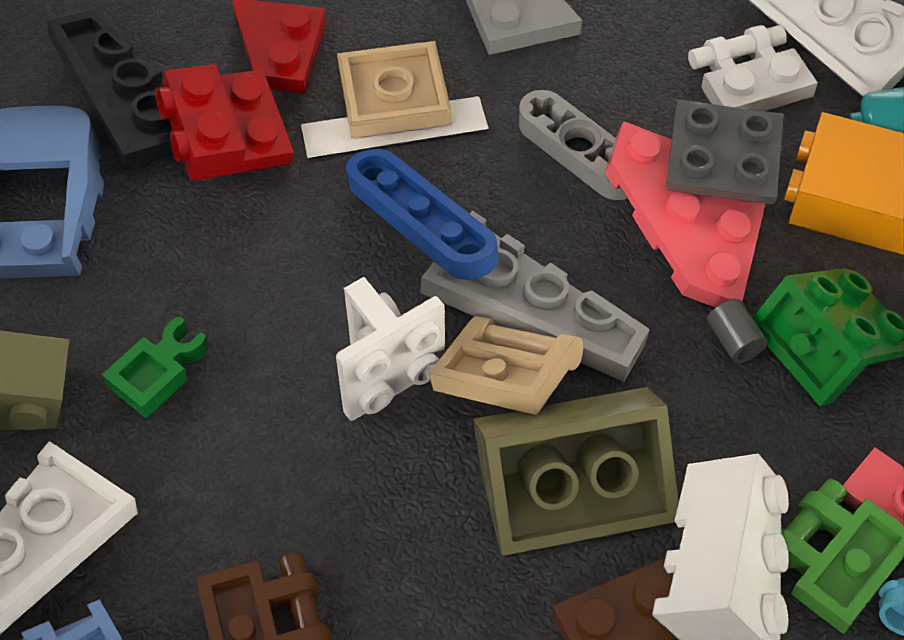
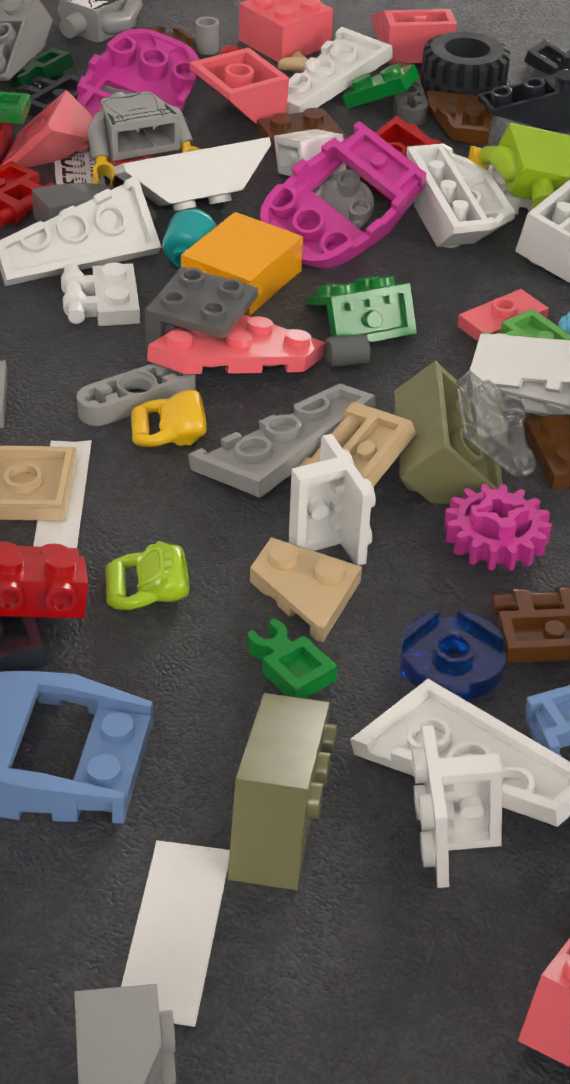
camera: 80 degrees left, 15 degrees down
(171, 496) = (475, 637): none -> clear blue plate
(267, 232) = (160, 573): none -> lime piece
(290, 365) = (305, 583): none -> tan wing
(403, 563) = (497, 527): none -> dark pink gear
(423, 214) = (190, 470): blue plate -> none
(533, 190) = (180, 420): none -> yellow piece
(613, 496) = (495, 424): none -> clear plate

